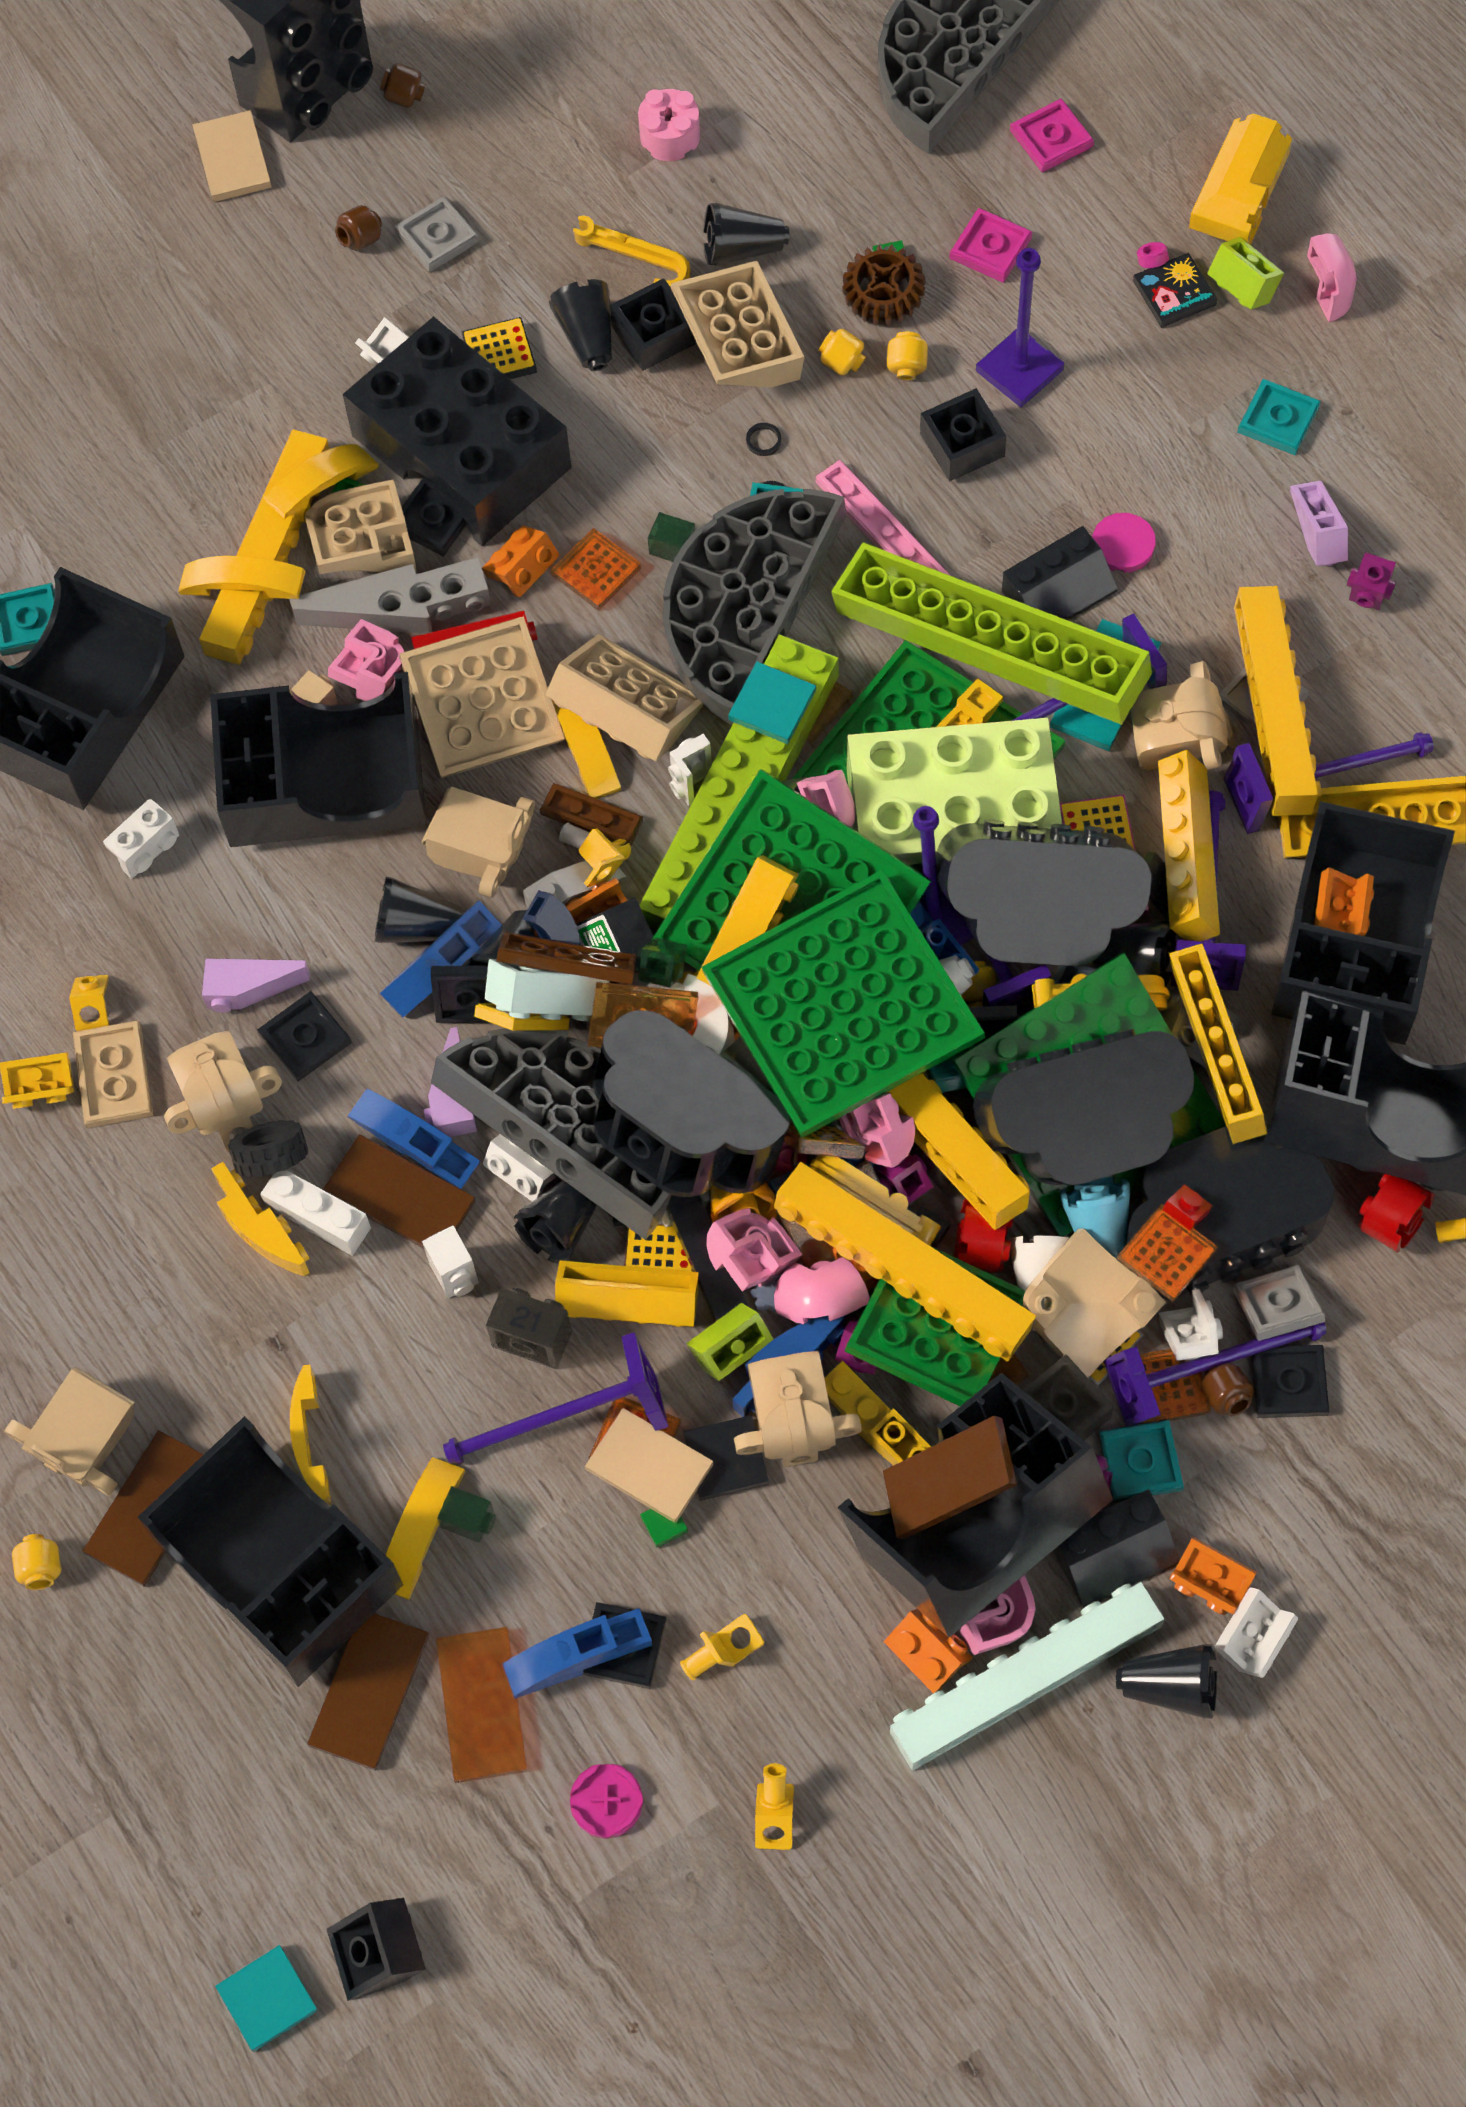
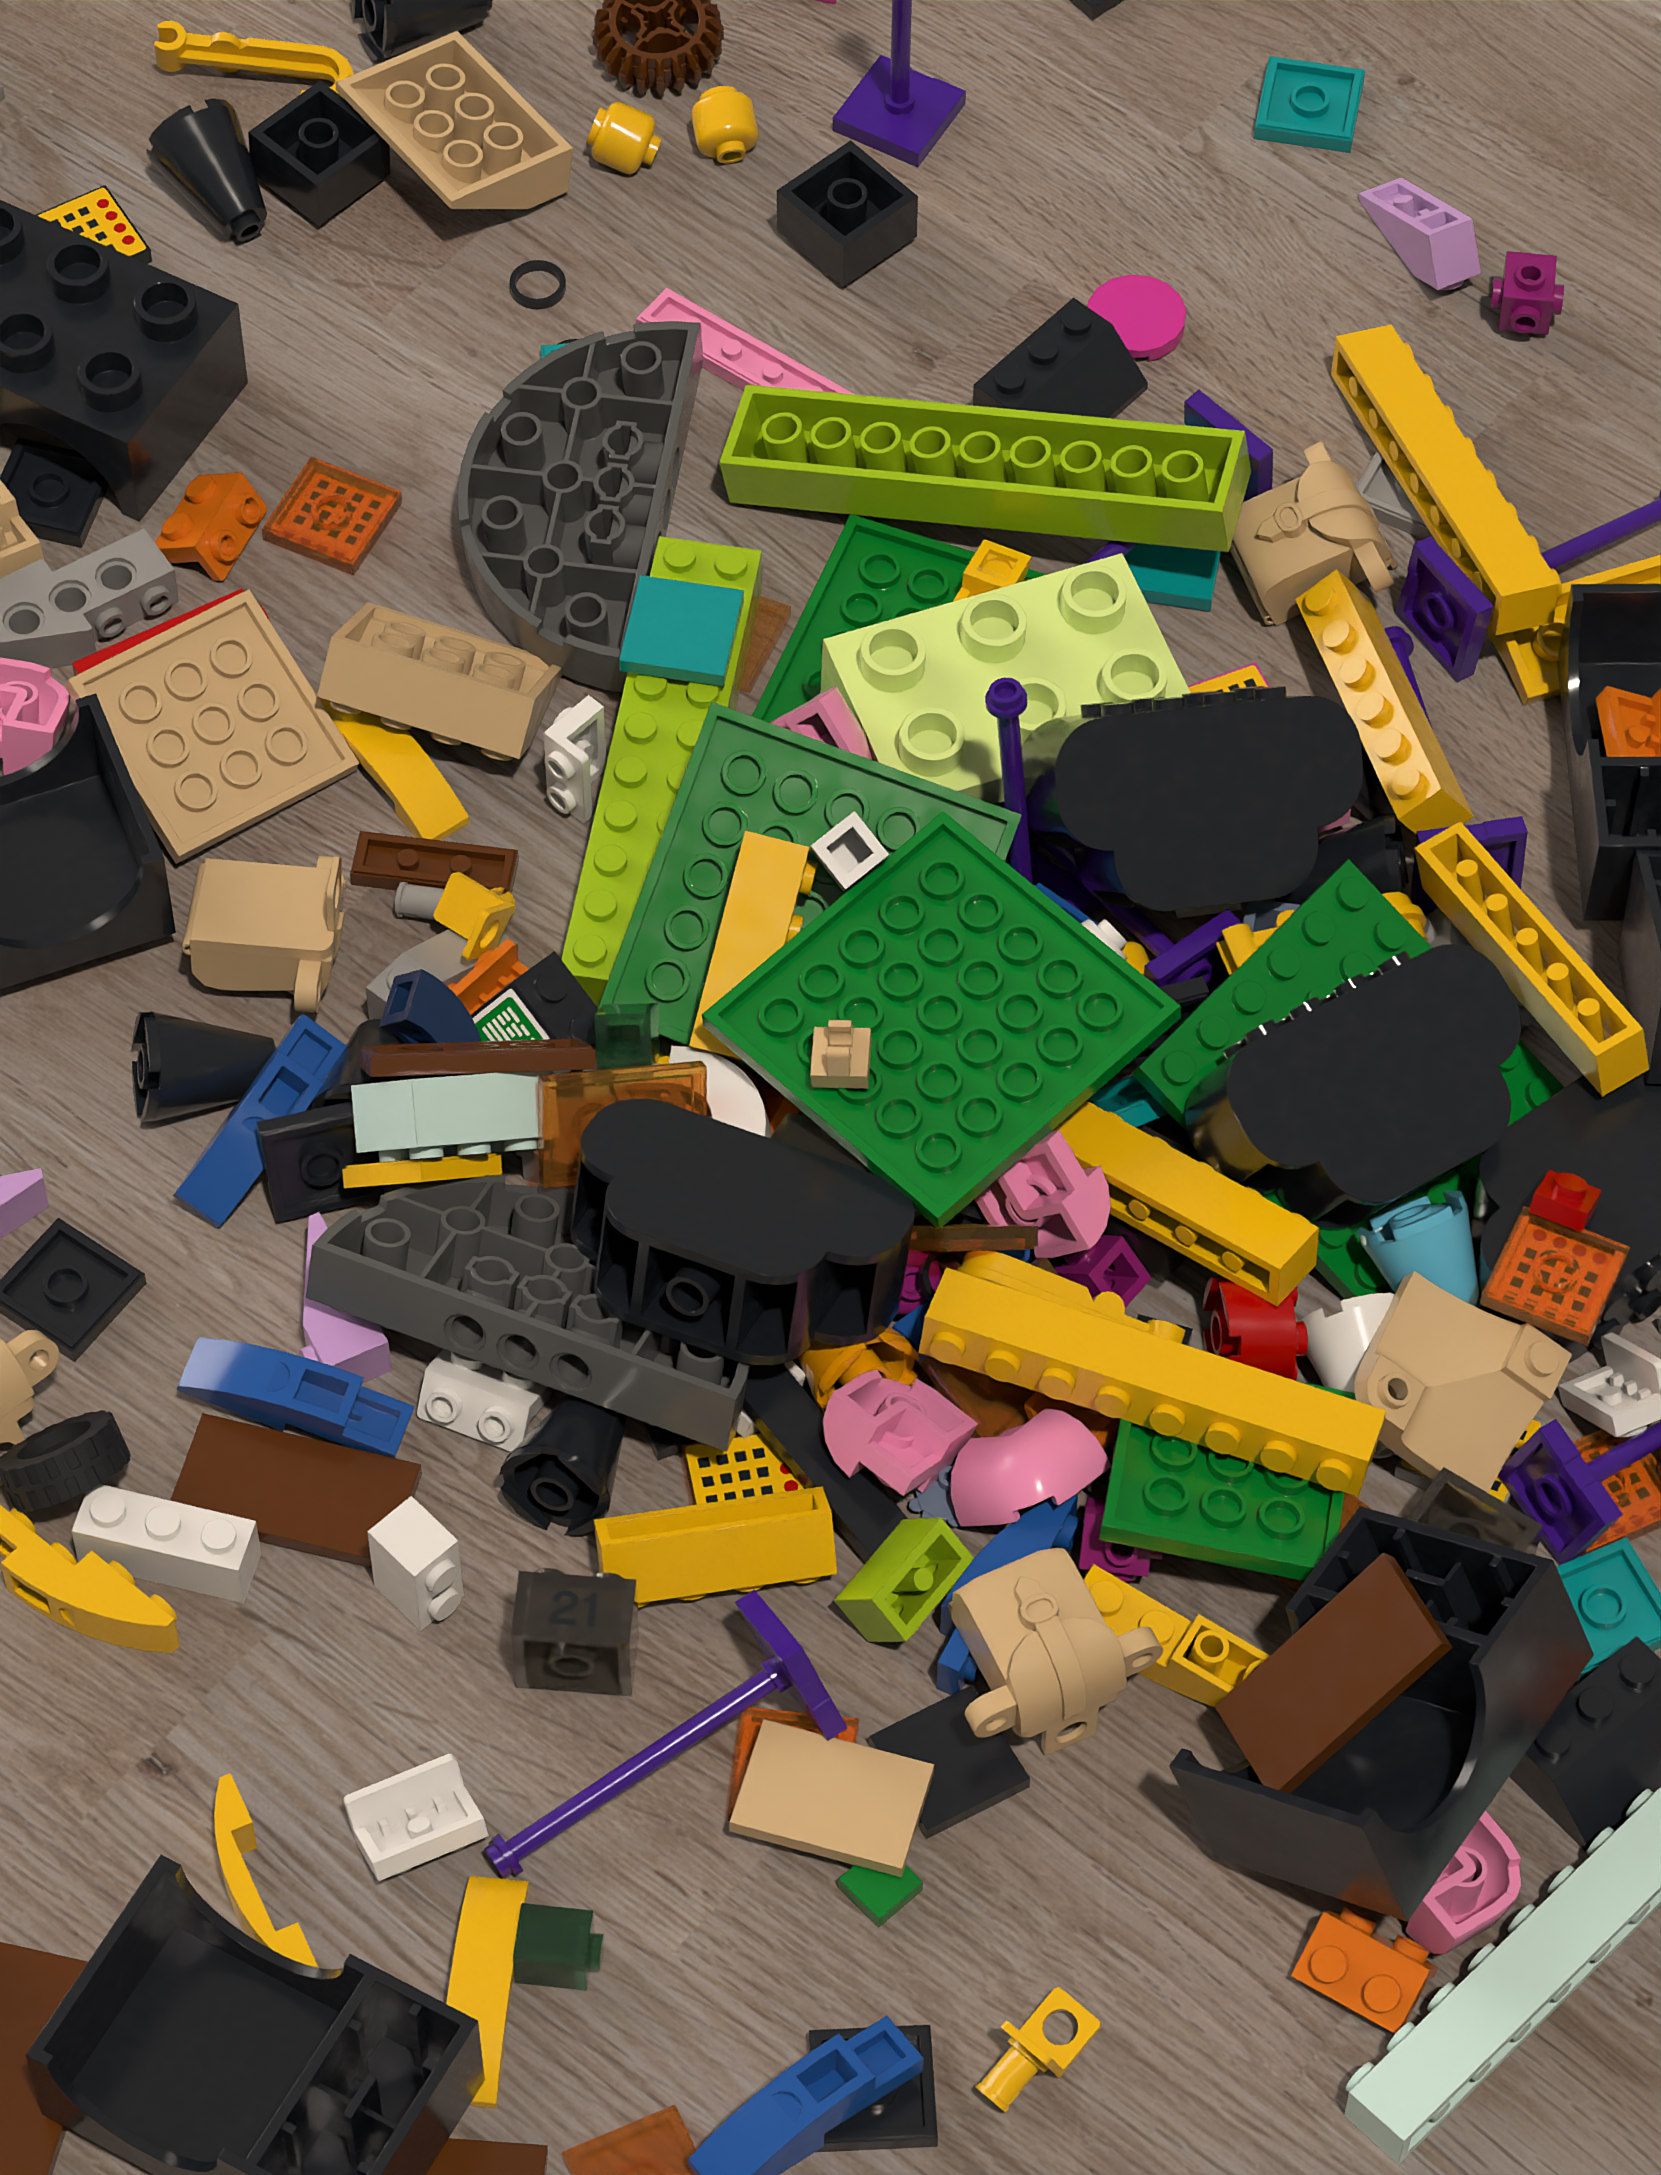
camera: 20 degrees left, 10 degrees down
(408, 1416) = (414, 1817): none -> white bracket
(668, 536) = (437, 444): clear green brick -> none
(773, 1016) = (841, 1056): none -> tan tile
(817, 883) = (849, 851): none -> white brick

